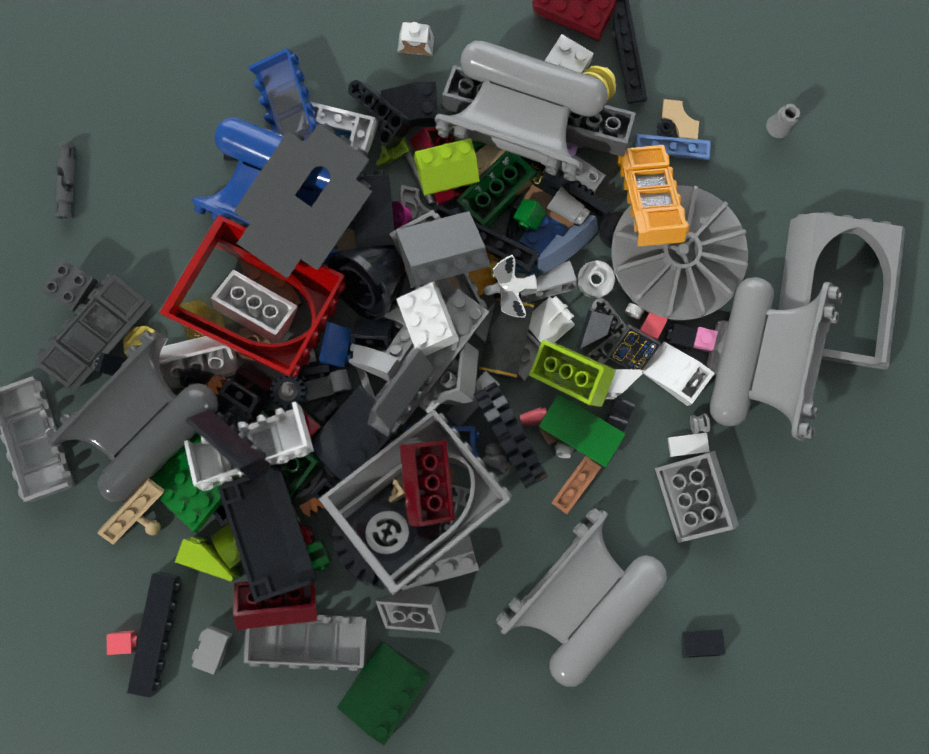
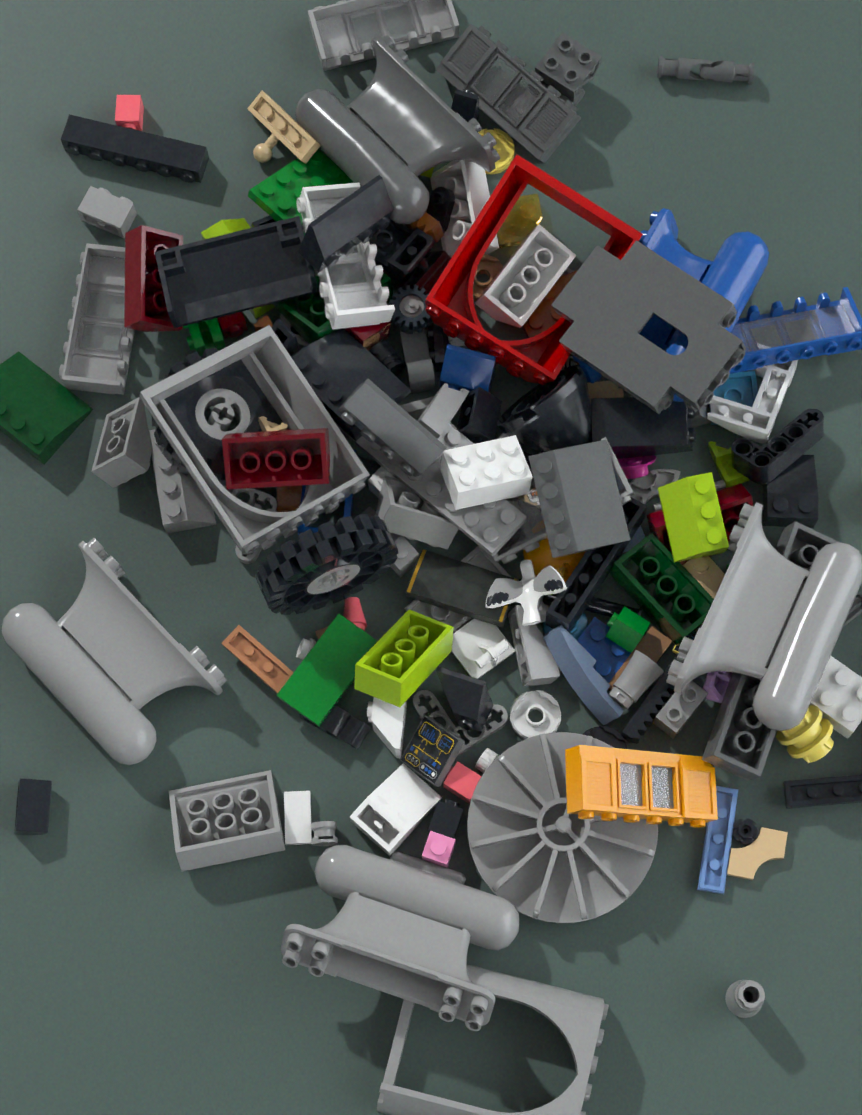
camera: 100 degrees right, 10 degrees down
(204, 557) = (220, 200): lime slope -> none

